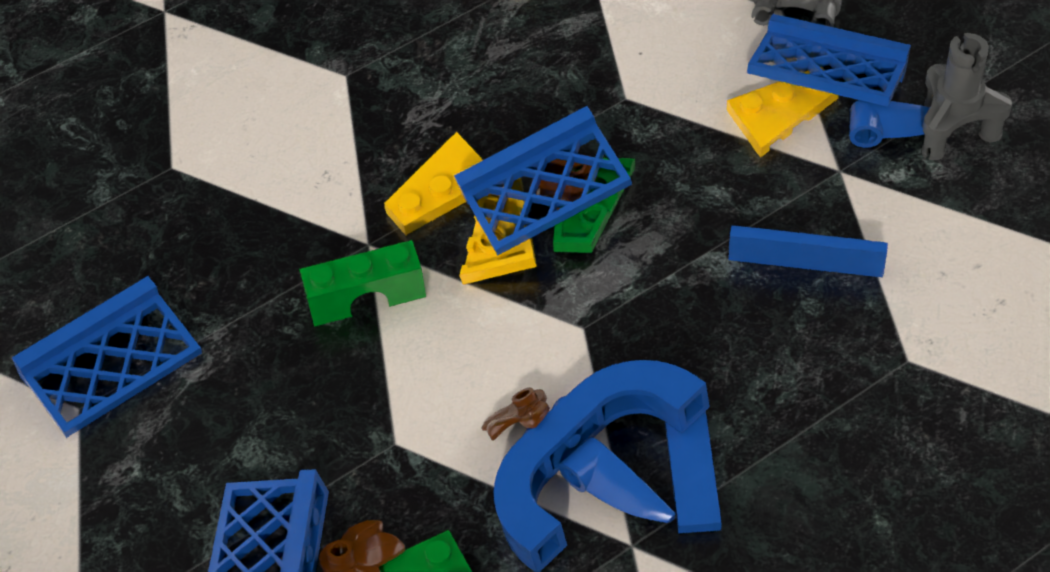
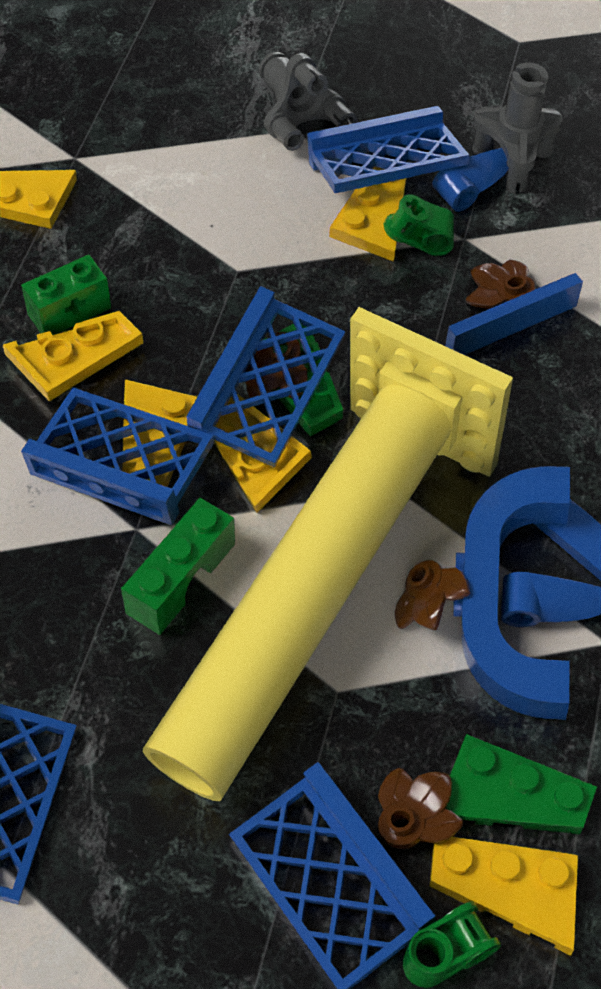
camera: 45 degrees left, 5 degrees up
(373, 198) = (109, 483): none -> blue fence
(438, 94) = (70, 357): none -> yellow wing
(460, 325) = (412, 406): none -> light yellow piece
(470, 47) = (67, 295): none -> green brick
(802, 139) = (424, 224): none -> green piece
(828, 219) = (499, 283): none -> reddish brown plate

